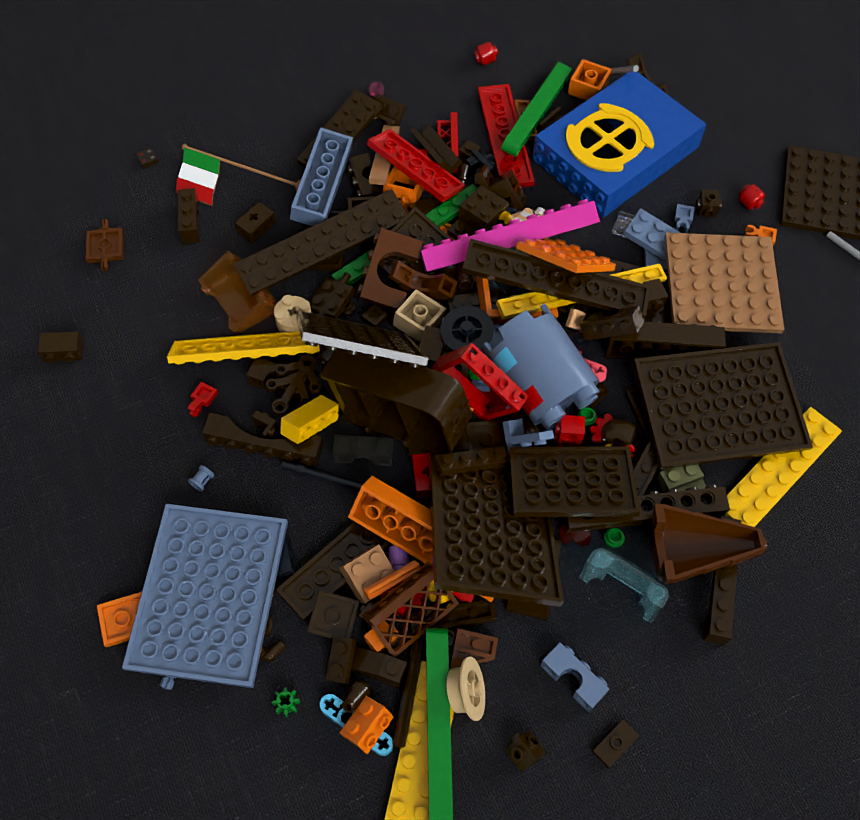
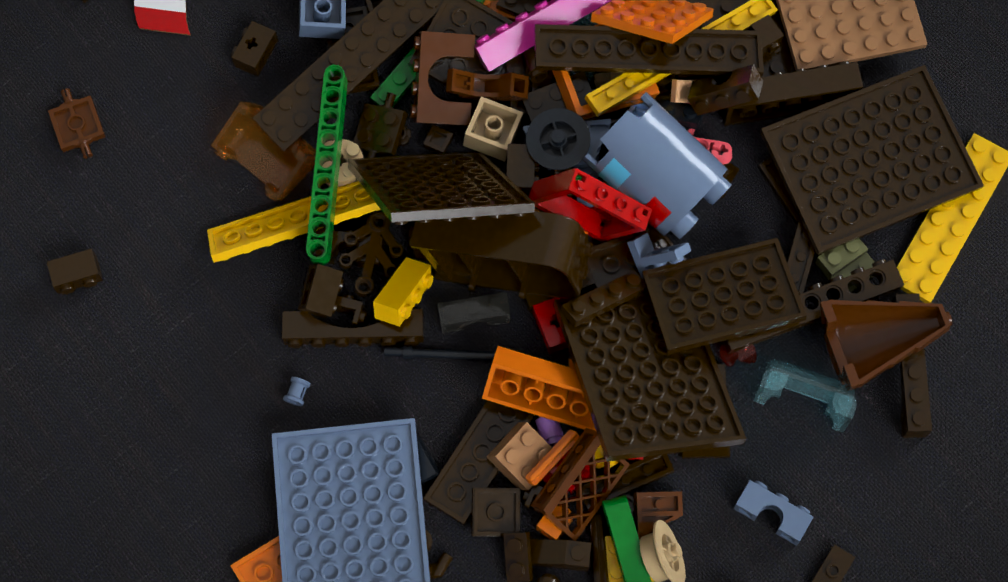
camera: 10 degrees left, 10 degrees up
(187, 216) = (168, 59): dark brown arch -> none
(202, 396) = (264, 291): red plate -> none
(243, 402) = (321, 290): none -> dark brown brick
(290, 283) = (330, 174): none -> green beam
(569, 431) = (706, 235): red brick -> none
(589, 414) = (721, 208): green plate -> none
(613, 432) = (755, 222): dark brown piece -> none
(614, 537) = (782, 346): green plate -> none

